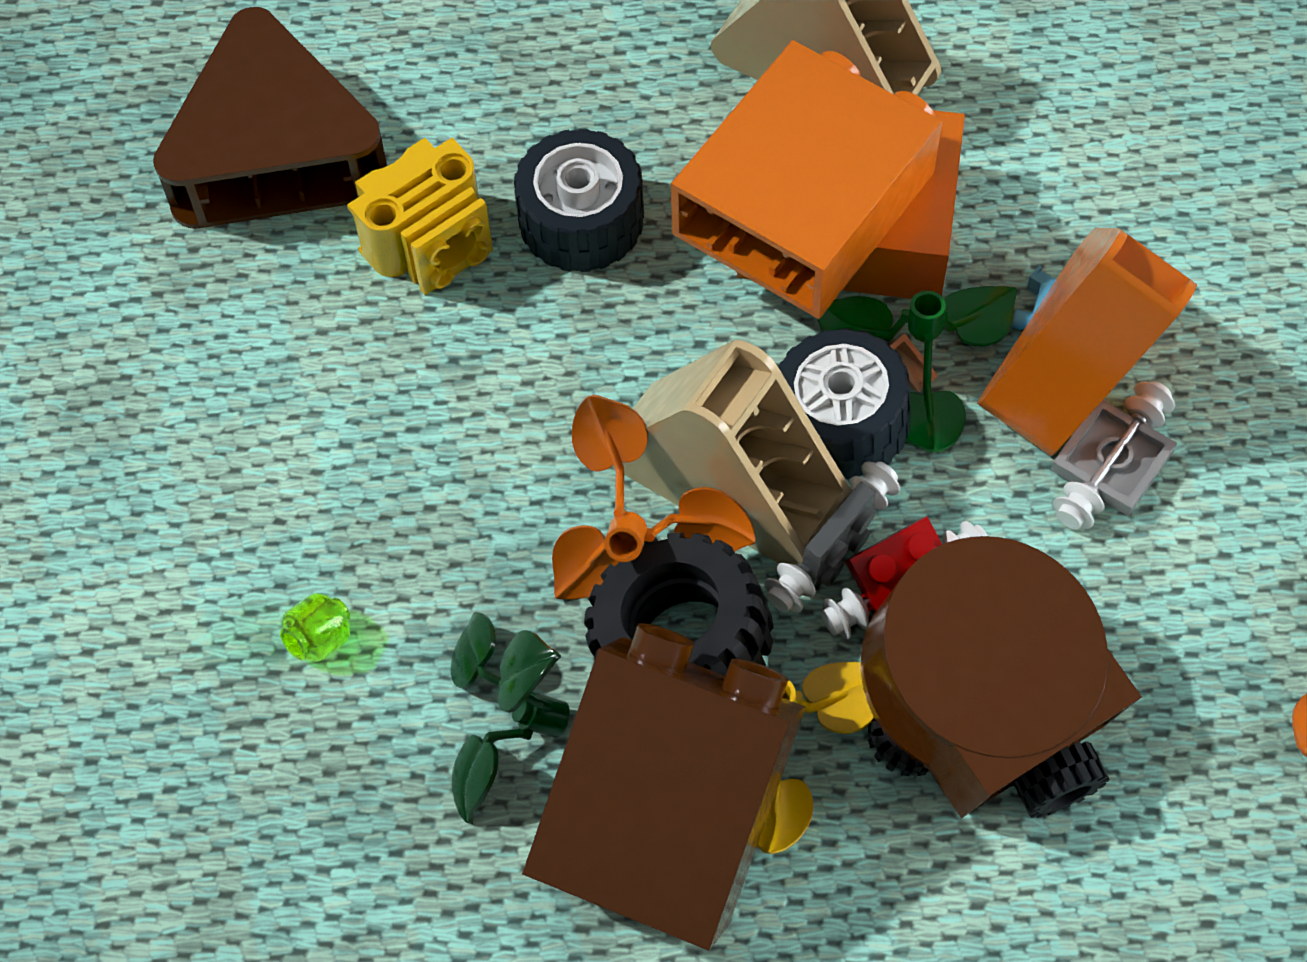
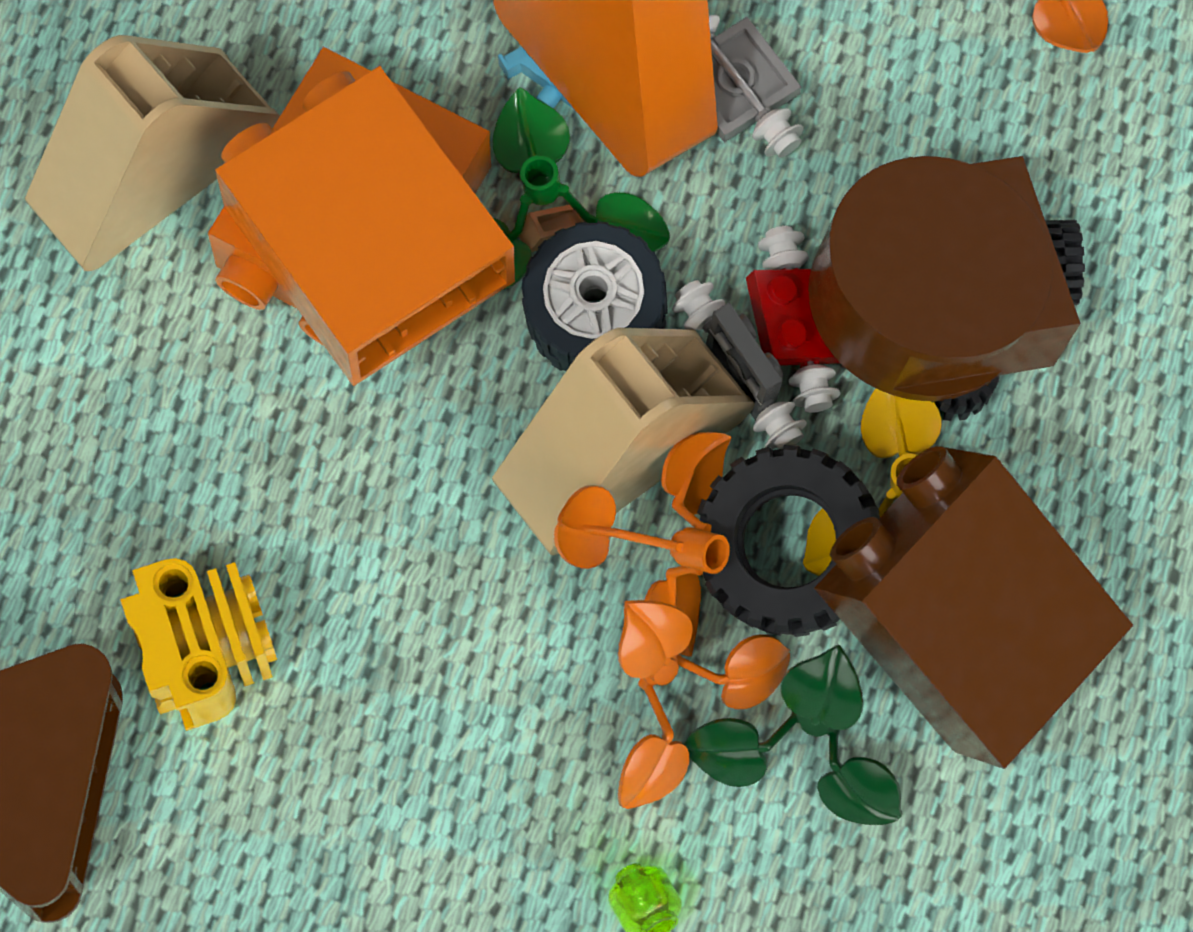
camera: 75 degrees left, 10 degrees up
(521, 520) = (651, 651): none -> orange plant
(579, 200) = (229, 436): black wheel -> none

